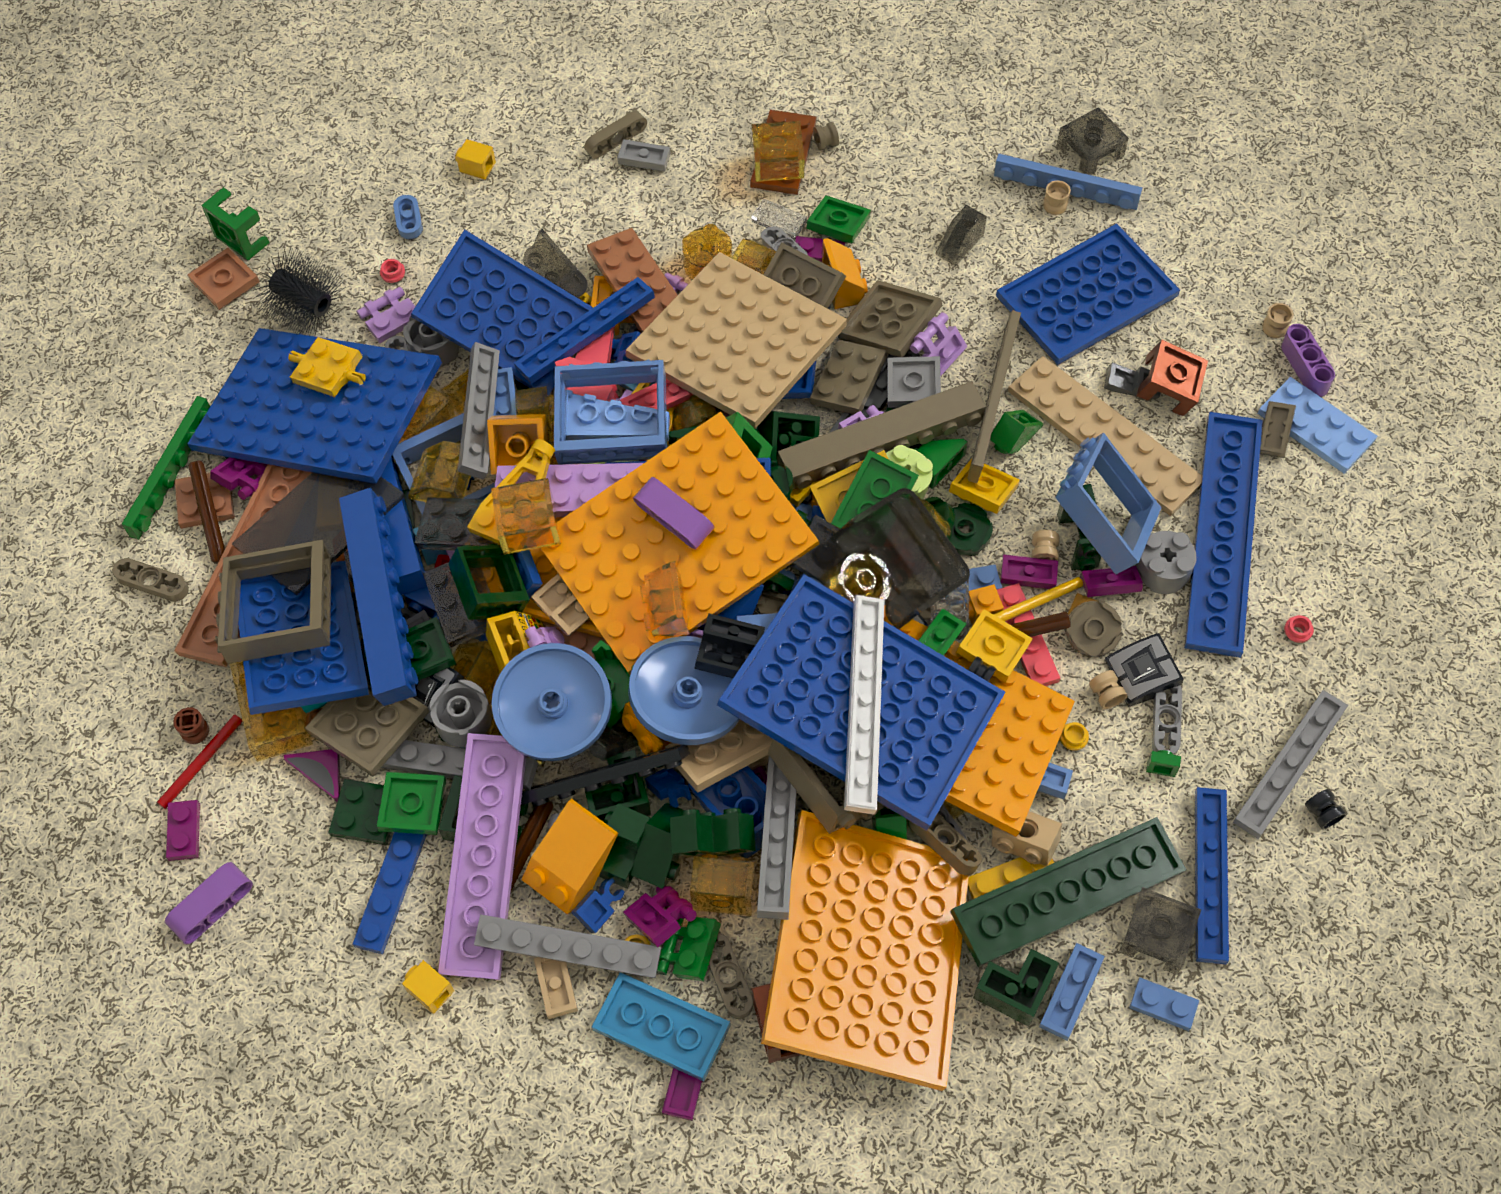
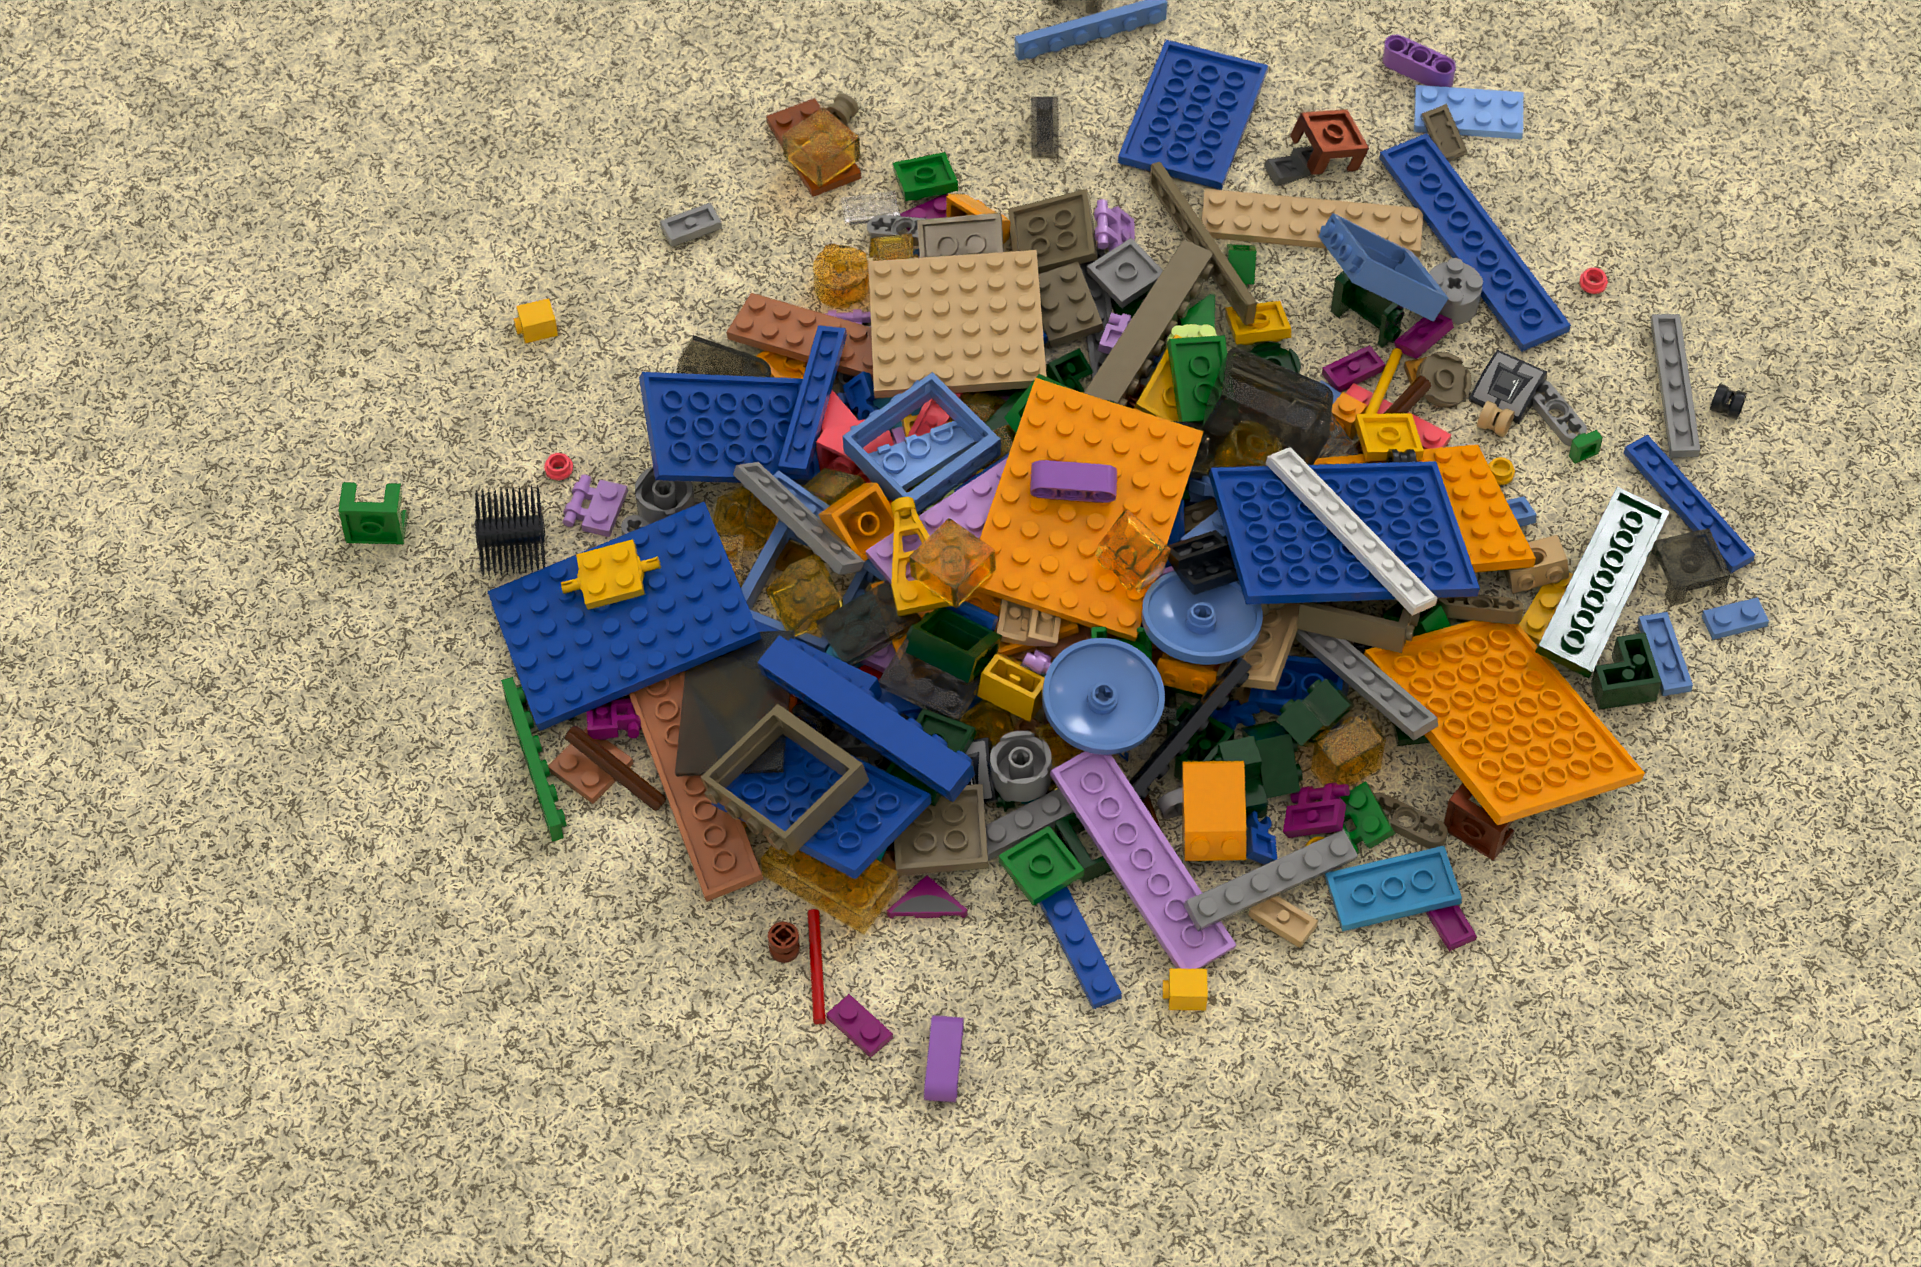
camera: 40 degrees left, 5 degrees down
(143, 571) = (596, 874): dark tan beam -> none
(223, 278) = (403, 571): nougat plate -> none
(358, 813) = (998, 907): dark green plate -> none
(408, 218) = (525, 411): medium blue plate -> none
(626, 127) = (646, 221): dark tan beam -> none
(942, 632) = (1343, 448): green plate -> none
(1045, 545) = (1347, 339): tan wheel -> none
(1056, 197) = (1094, 46): tan wheel -> none
(1277, 320) = (1367, 44): tan wheel -> none

